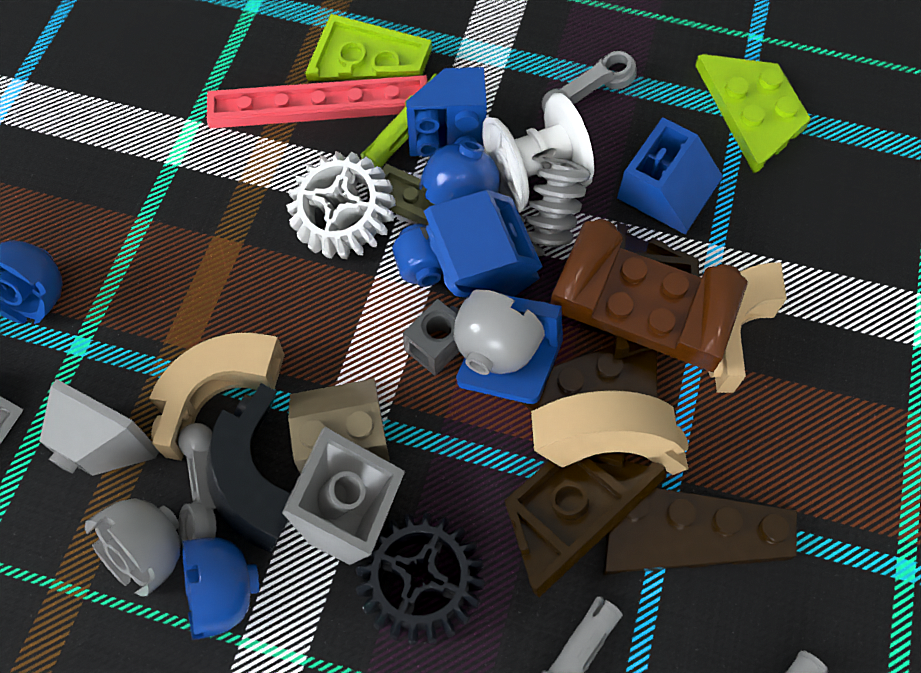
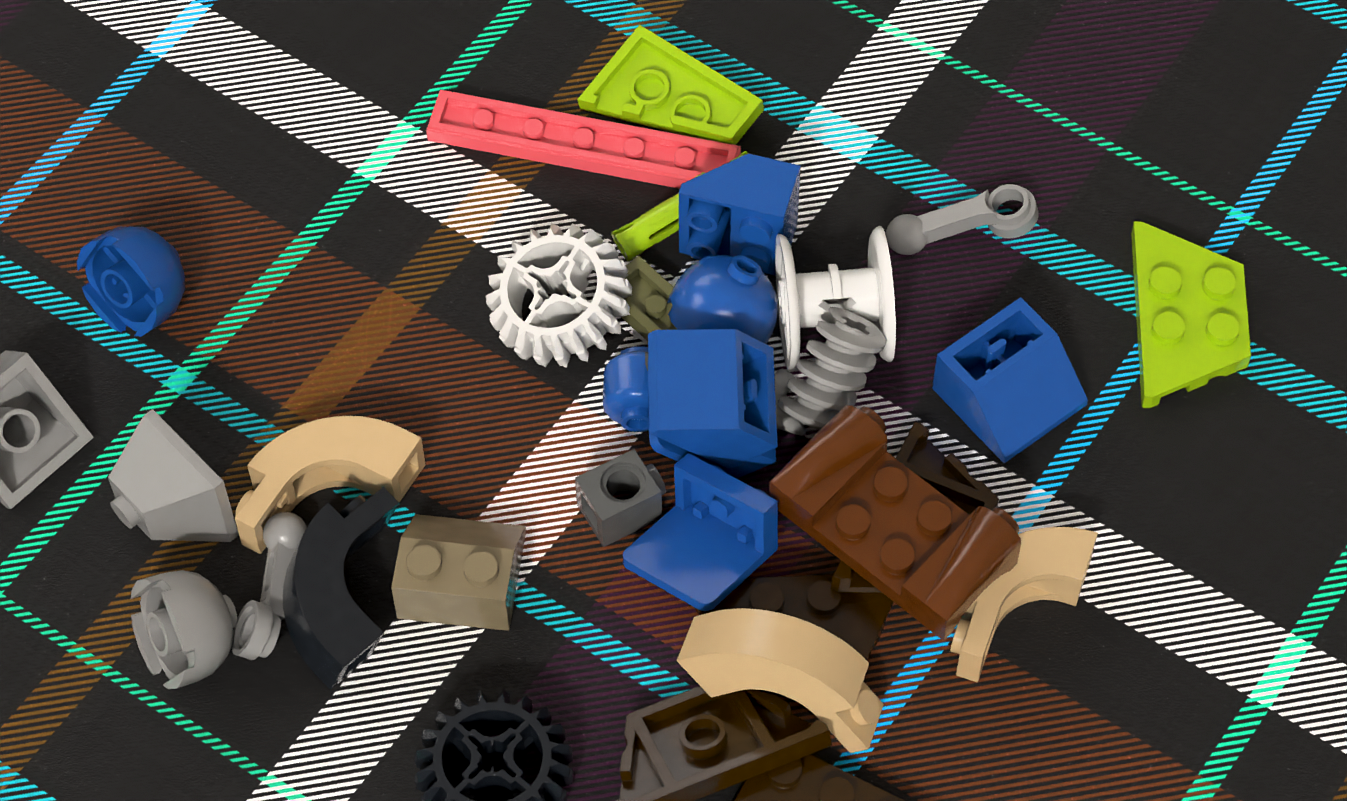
camera: 20 degrees right, 5 degrees down
(216, 585) = (259, 699): blue cylinder -> none
(342, 497) = (432, 644): light grey slope -> none
(494, 334) = (681, 513): light grey cylinder -> none

